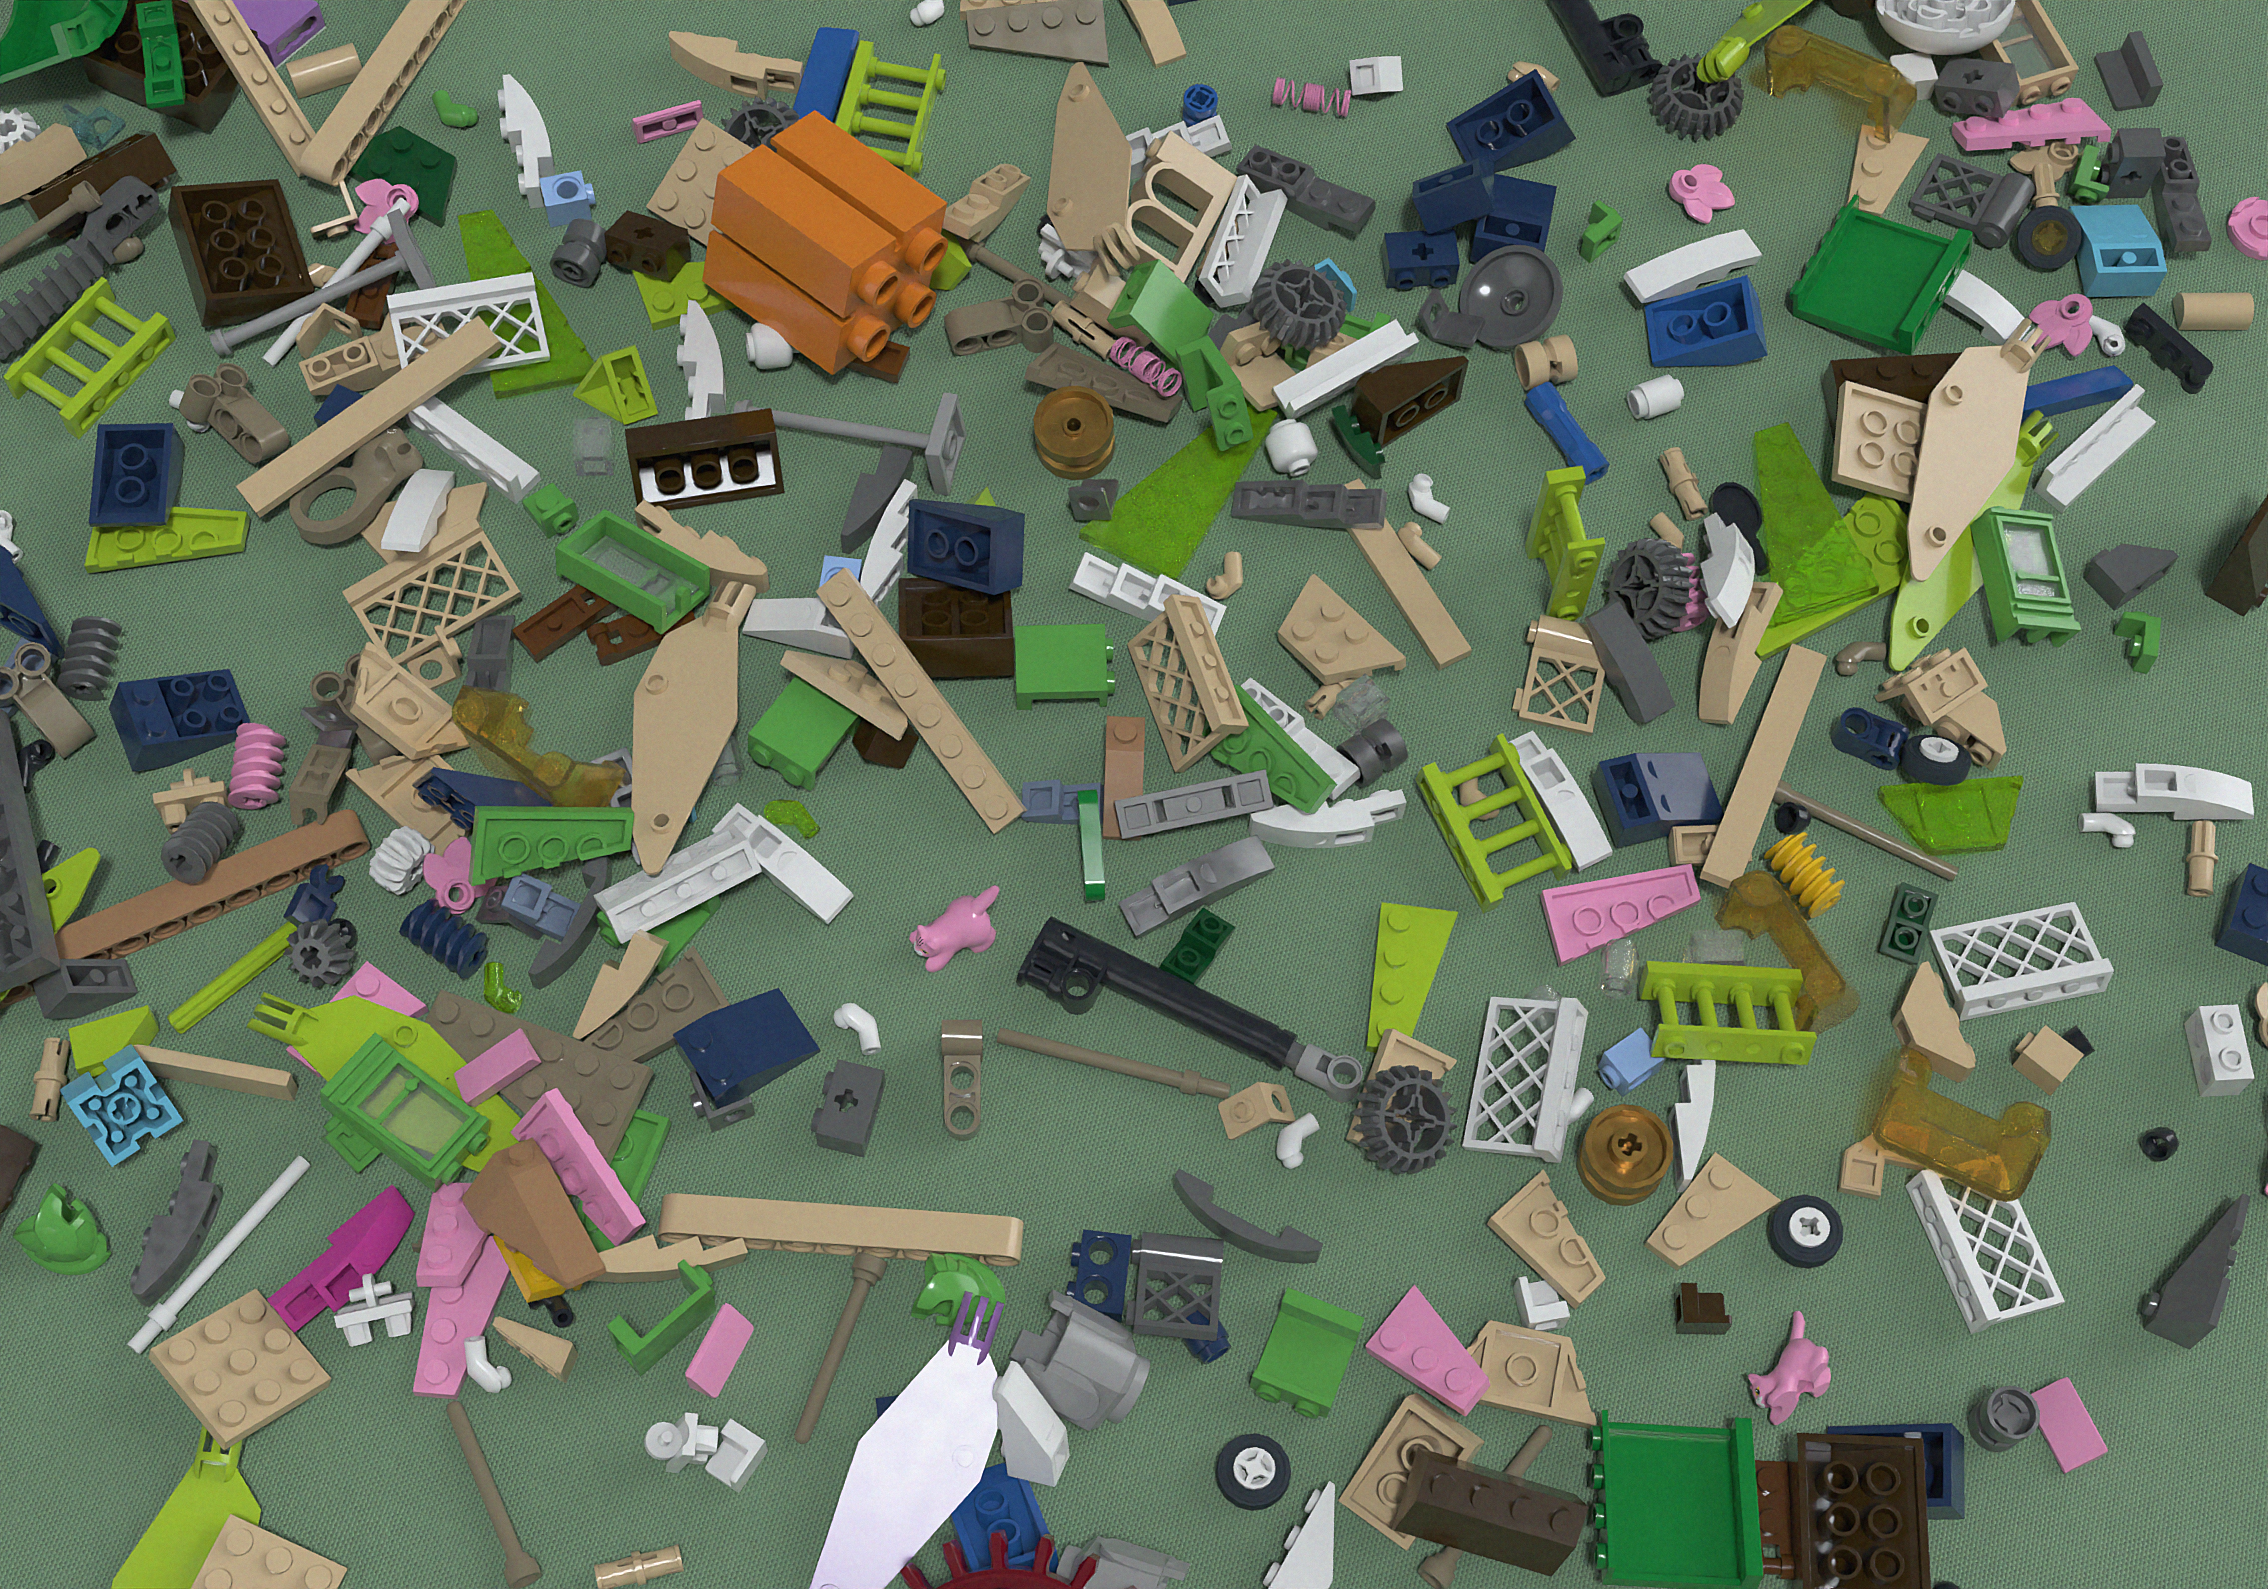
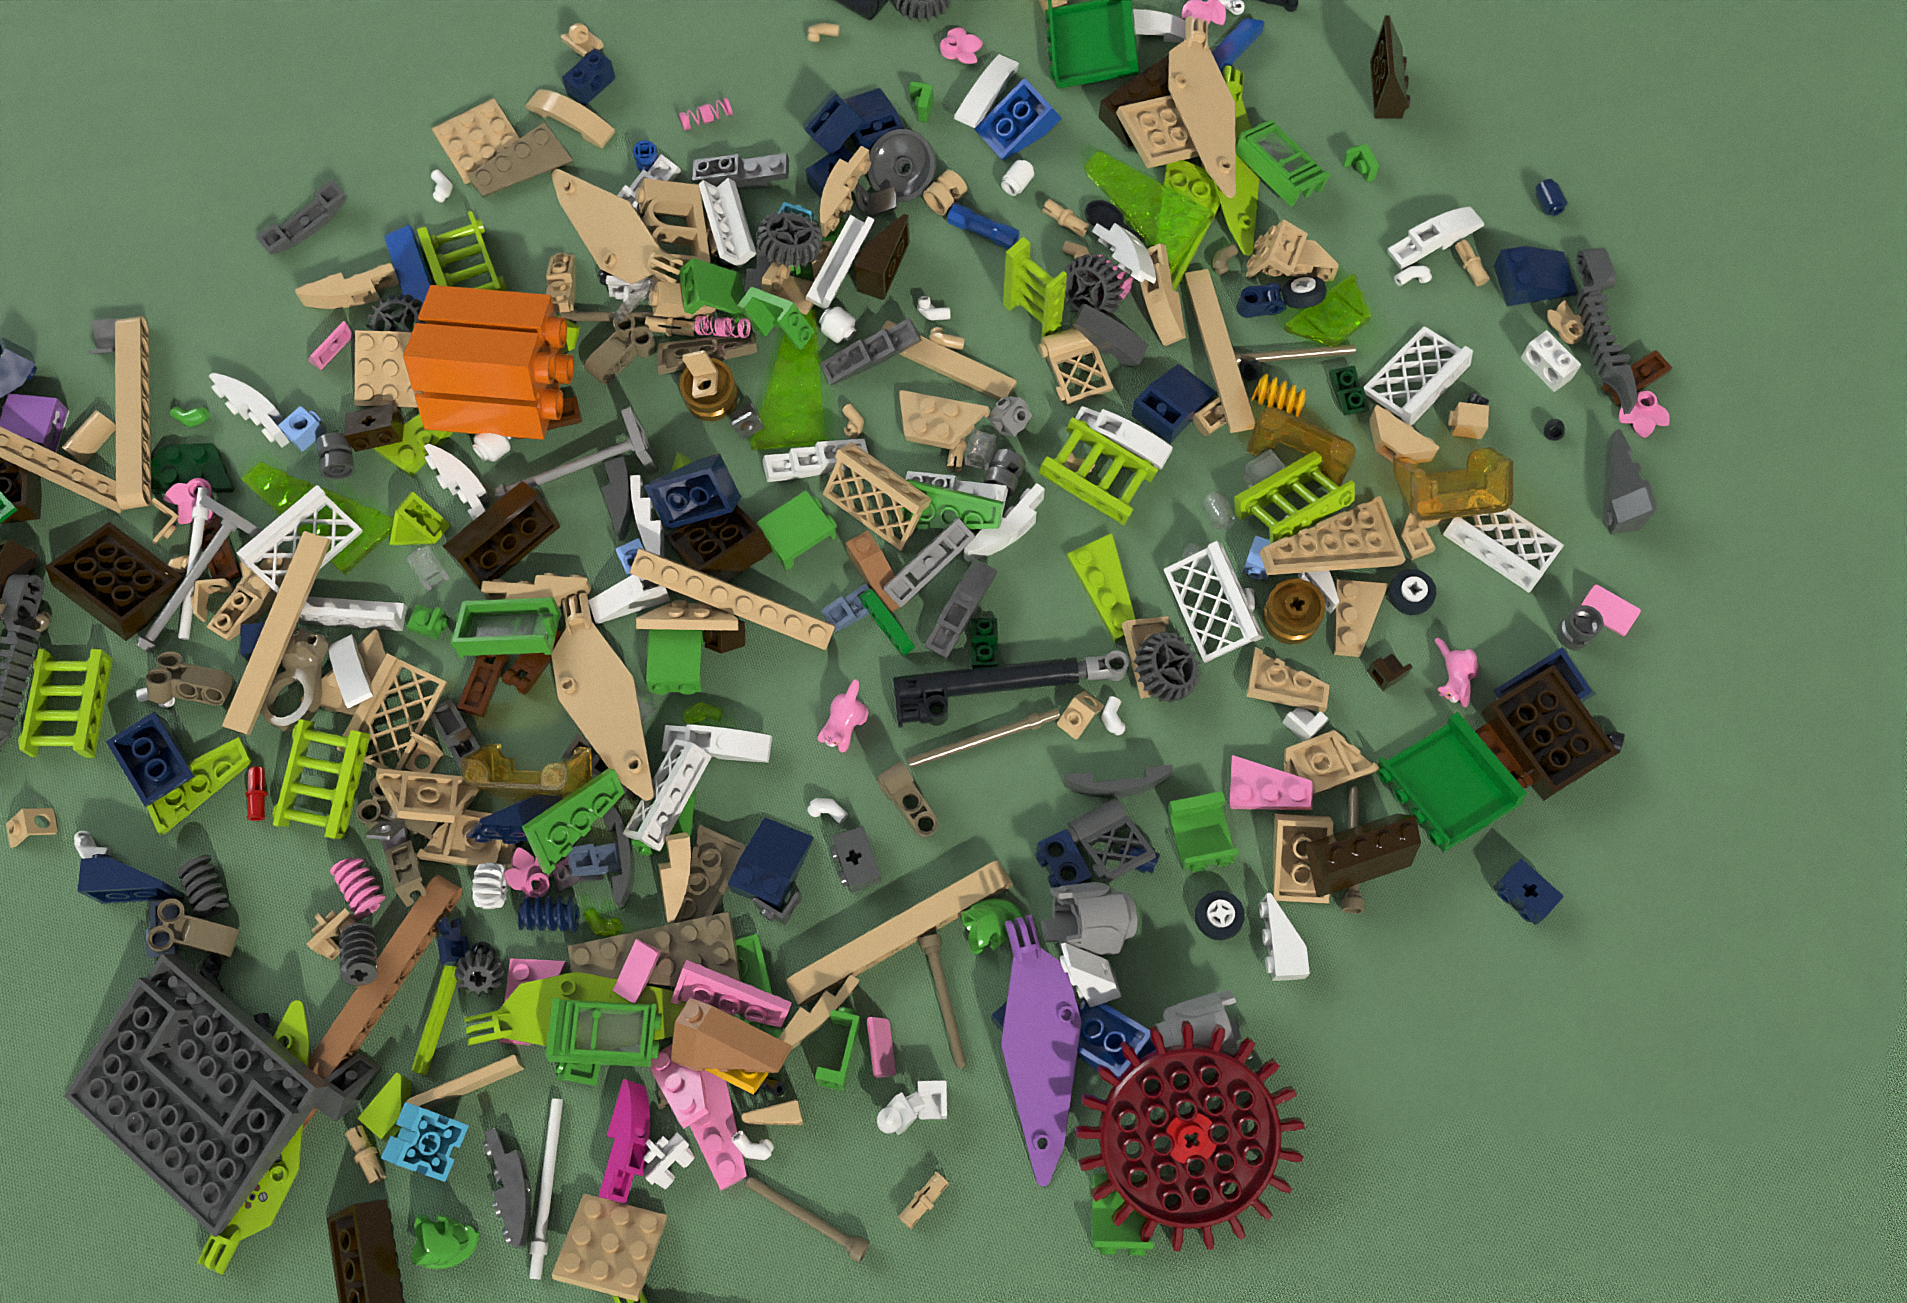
camera: 30 degrees left, 5 degrees up
(176, 717) = (285, 888): dark blue slope -> none
(220, 590) = (256, 794): none -> red axle
(309, 651) = (341, 797): none -> lime fence
(1056, 271) = (634, 300): none -> clear tile
(1077, 403) = (702, 370): none -> tan bracket
(1358, 445) = (877, 302): dark green slope -> none
(1376, 75) = (734, 80): white panel -> none
(1397, 284) = (838, 188): none -> tan slope
(1429, 687) = (1010, 416): none -> light grey brick
(1513, 125) = (832, 65): dark blue slope -> none
(1612, 908) = (1190, 481): bright pink wing -> none
(1755, 1107) = (1341, 542): none -> tan wing
(2095, 451) = (1269, 72): white fence -> none
(2127, 571) = (1329, 128): dark grey slope -> none

